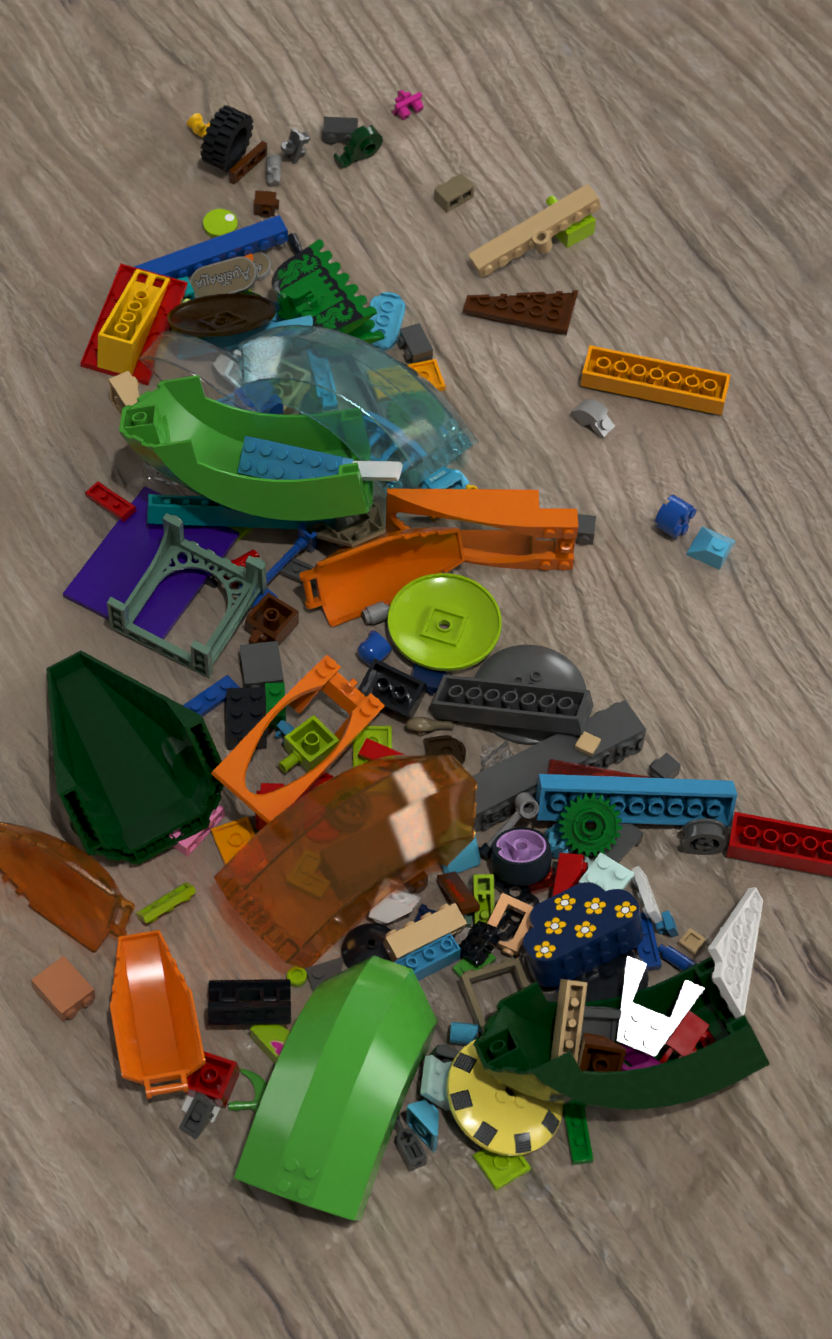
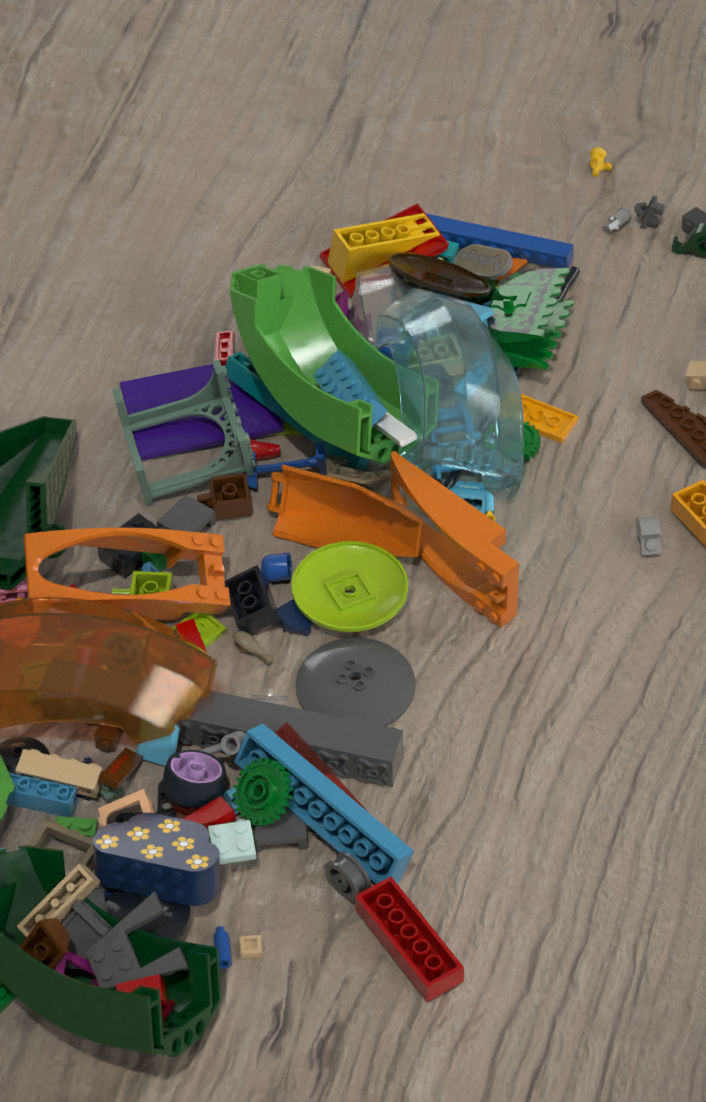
camera: 50 degrees right, 10 degrees down
(211, 697) = (118, 516): blue plate -> none
(219, 222) = (534, 227): lime tile -> none
(226, 138) = (590, 160): black tyre -> none
(248, 162) = (602, 204): reddish brown tile -> none
(265, 203) = (581, 236): reddish brown brick -> none
(375, 613) = (309, 544): light grey brick -> none
(388, 318) = (573, 368): medium azure tile -> none
(394, 906) = (69, 739): white slope -> none
(415, 344) = (574, 395): dark grey brick -> none
(445, 745) = (240, 675): dark brown tile -> none
(477, 939) = (96, 812): black hinge -> none
(484, 893) = (139, 778): lime slope -> none
(513, 704) = (316, 671): dark grey brick -> none
(586, 529) = (542, 604): dark grey brick -> none
(587, 744) = (332, 736): tan tile -> none
(646, 895) = (253, 881): white plate -> none
(648, 949) = (214, 915): blue plate -> none
(664, 767) = (385, 810): dark grey brick -> none
(667, 925) = (246, 917): dark azure tile -> none
(675, 516) = (620, 643): blue brick -> none
(711, 547) = (630, 691): medium azure slope -> none
(735, 951) = (247, 963): white wing -> none

